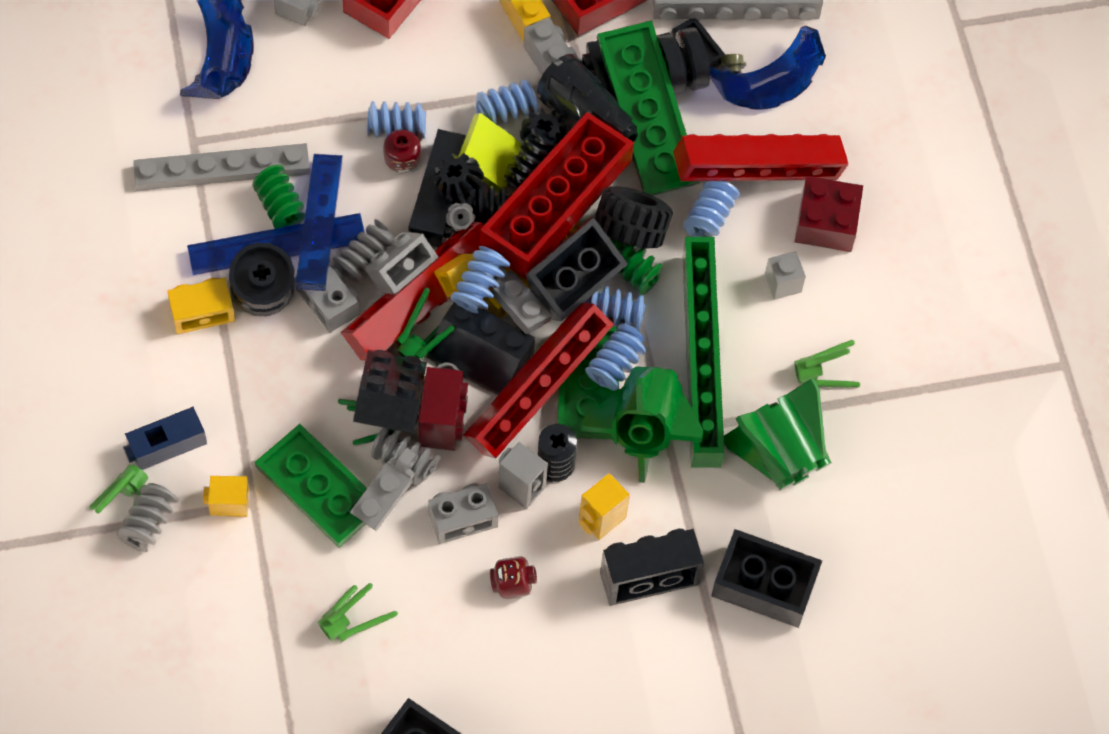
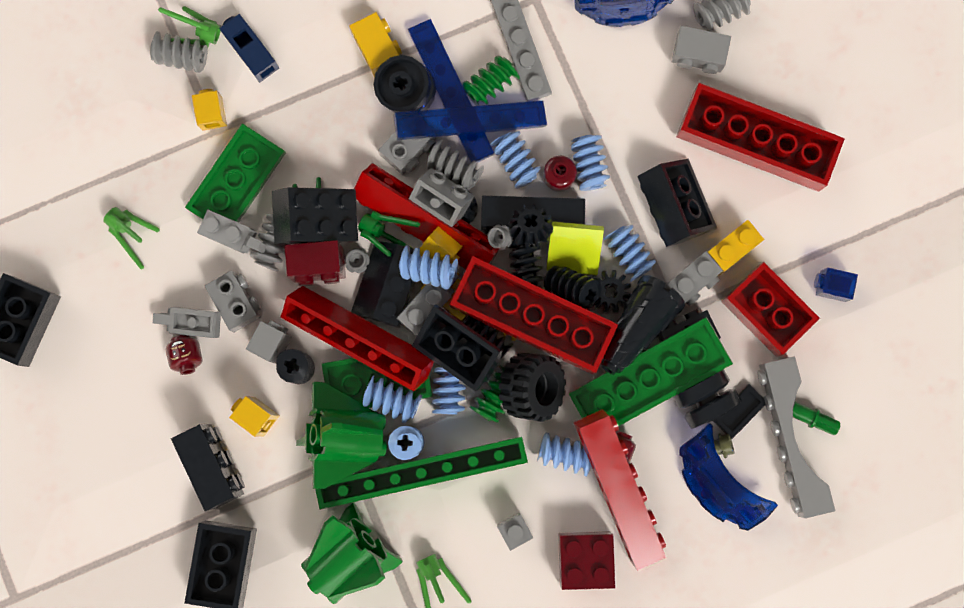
camera: 85 degrees right, 20 degrees up
(373, 189) = (515, 159): none -> light blue piece
(462, 52) = (676, 201): none -> black slope
(476, 560) = (190, 322): none -> light grey hinge
(668, 350) = (399, 450): none -> light blue piece

